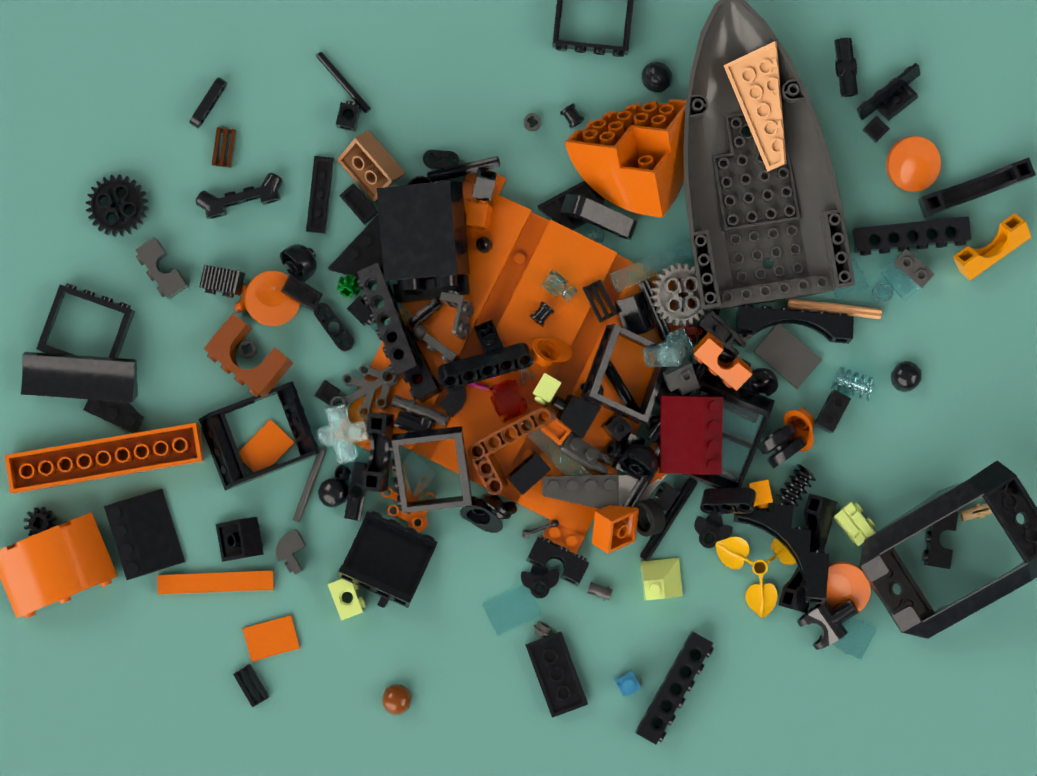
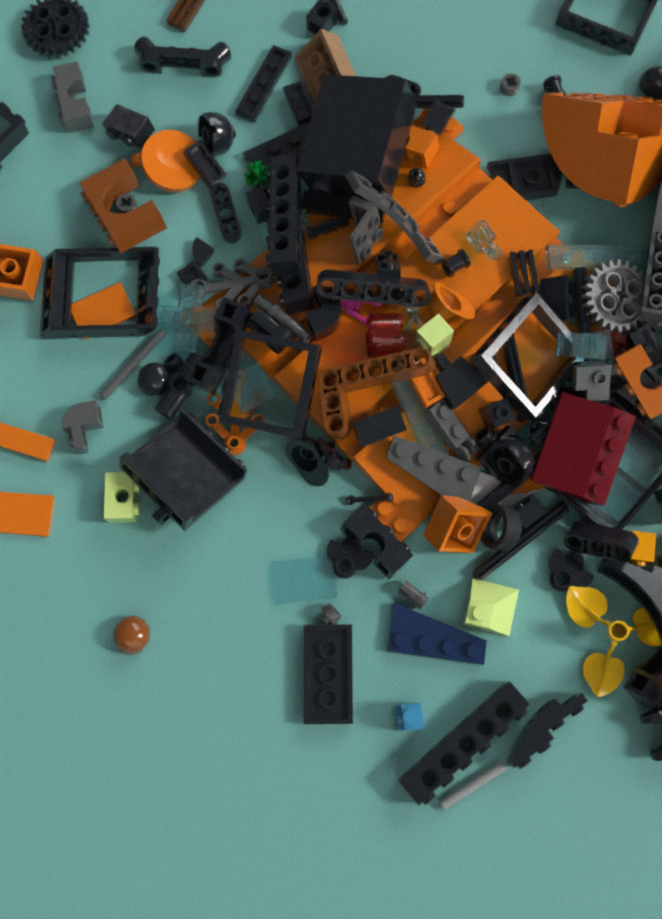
camera: 25 degrees right, 10 degrees down
(239, 539) = (33, 392): black slope -> none
(327, 369) = (201, 251): none -> black tile
(420, 333) = (324, 255): dark grey plate -> none
(468, 286) = (396, 212): none -> dark grey tile
(598, 215) = (553, 187): beam -> none
(622, 619) = (427, 637): none -> dark blue wing
(691, 716) = (473, 785): none -> light grey bar
(725, 663) = (536, 735): none -> black slope

